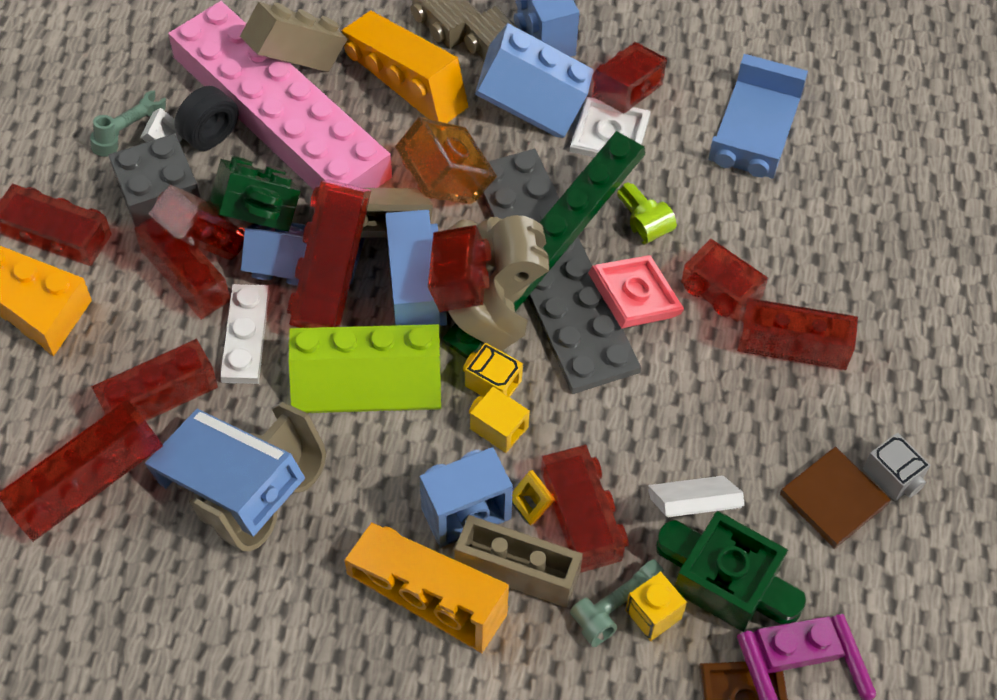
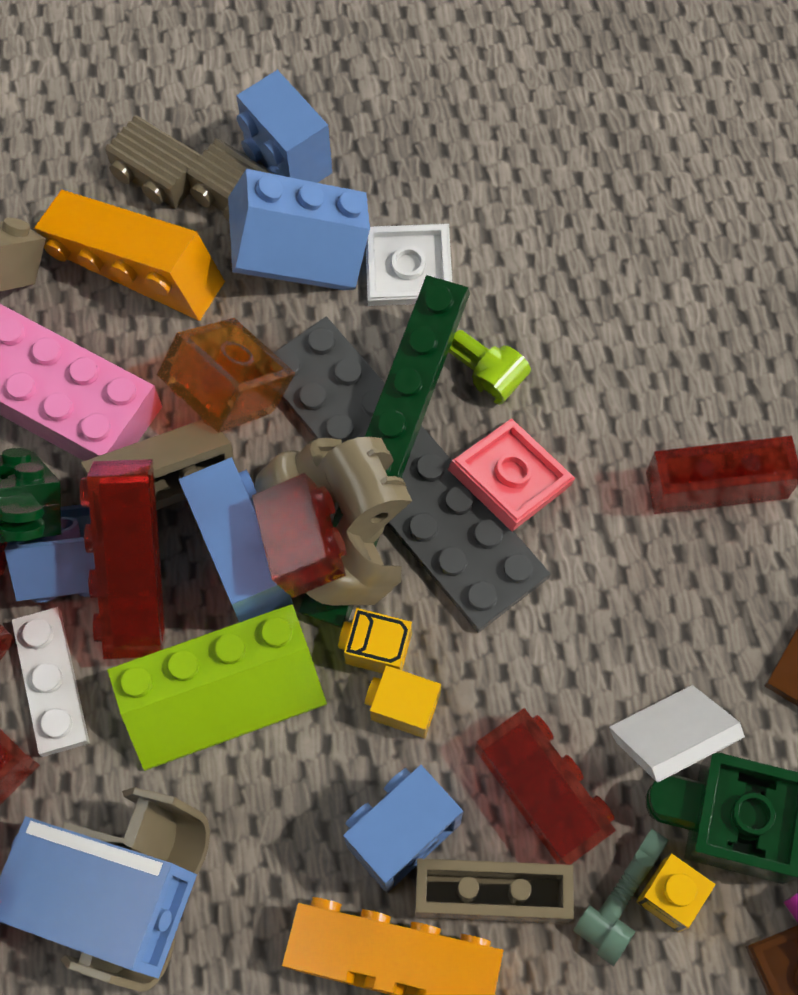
camera: 15 degrees left, 10 degrees up
(532, 487) = (486, 785): yellow slope -> none
(629, 77) = (409, 188): clear red brick -> none
(723, 280) = (610, 428): clear red brick -> none
(758, 116) = (578, 194): medium blue panel -> none

